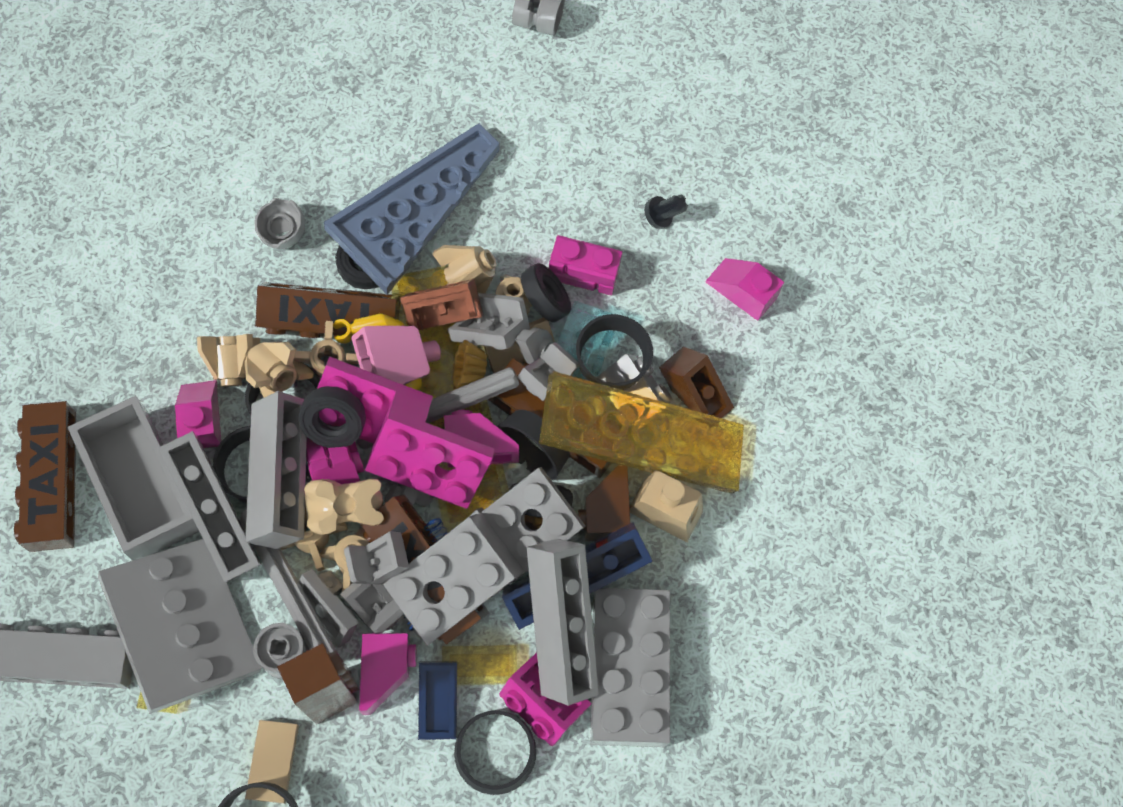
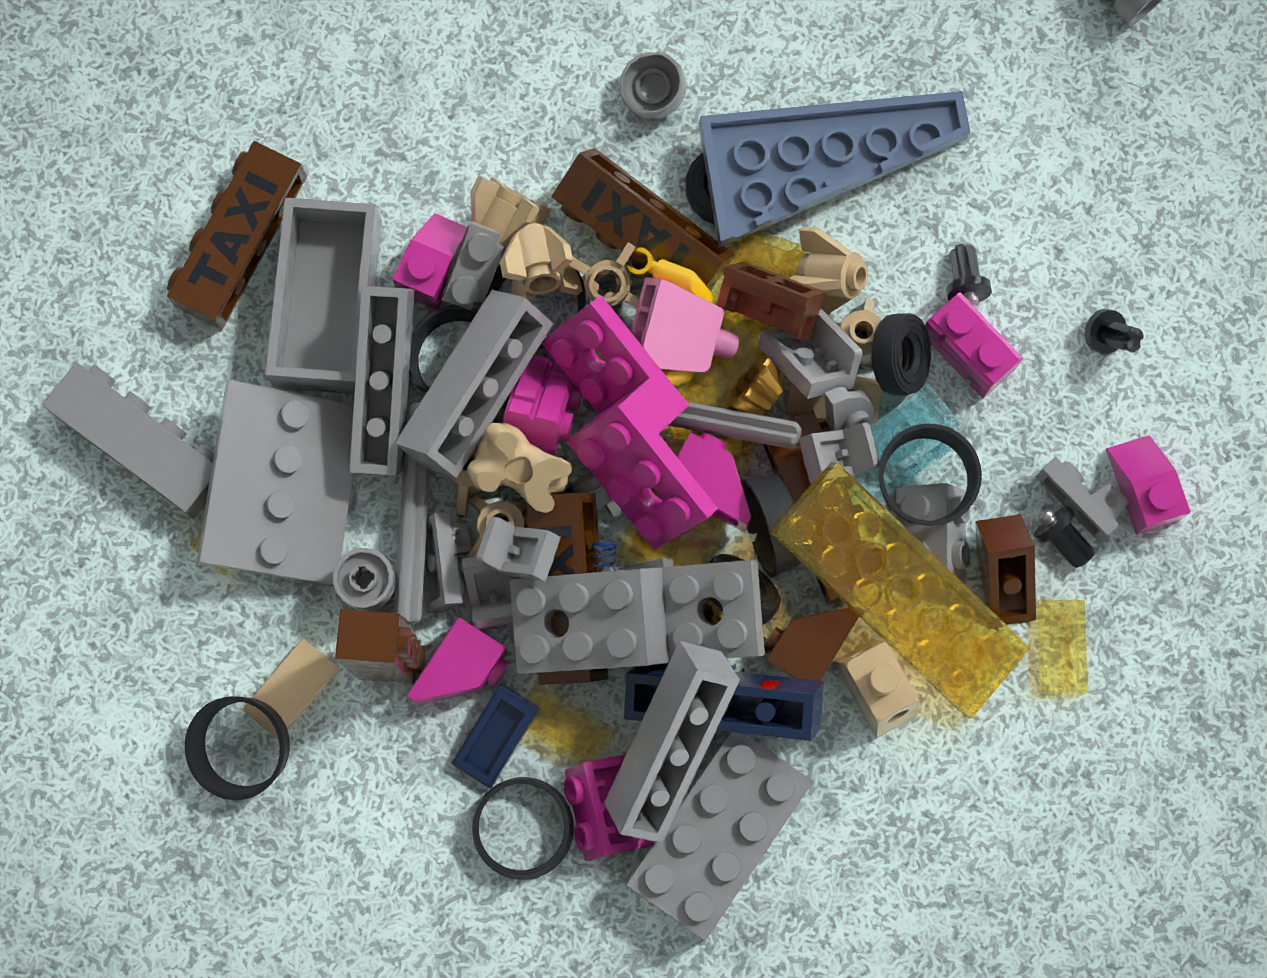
camera: 40 degrees right, 10 degrees up
(229, 399) = (473, 266): none -> light grey piece
(336, 399) = (582, 352): black tyre -> none
(553, 226) = (967, 276): none -> black piece
(717, 345) = (1064, 536): none -> black piece
(724, 320) = (1093, 511): none -> light grey hinge
(761, 413) = (1062, 646): none -> clear yellow tile

